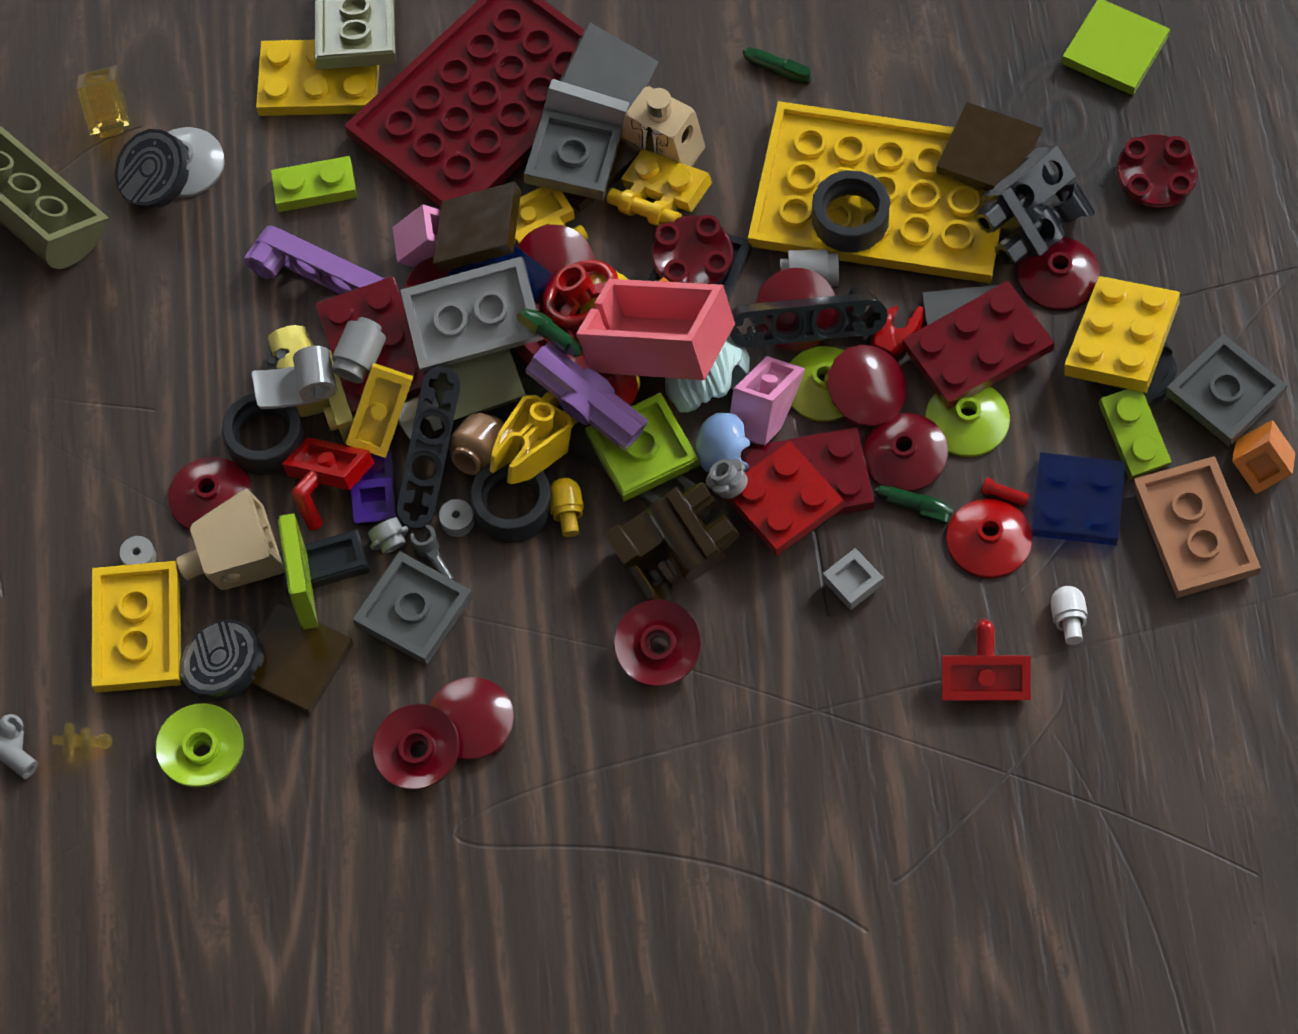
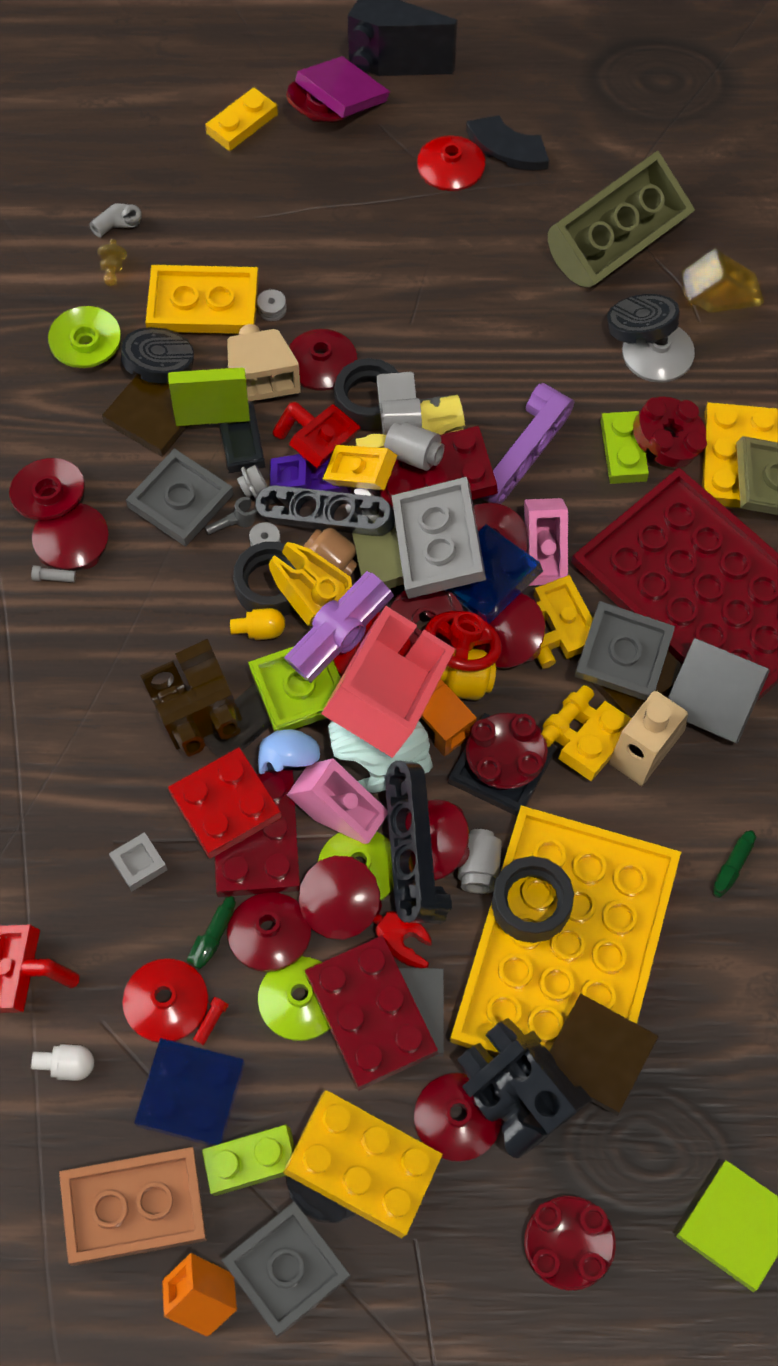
camera: 90 degrees right, 0 degrees up
(281, 127) = (682, 419): none -> dark red plate
(477, 227) = (534, 550): dark brown tile -> none
(520, 744) = (40, 573): none -> light grey piece
(541, 324) = (407, 586): dark green piece -> none
(585, 103) = (677, 660): light grey tile -> none
(652, 621) = (97, 672): dark red dish -> none
(727, 478) = (242, 746): light grey plate -> none

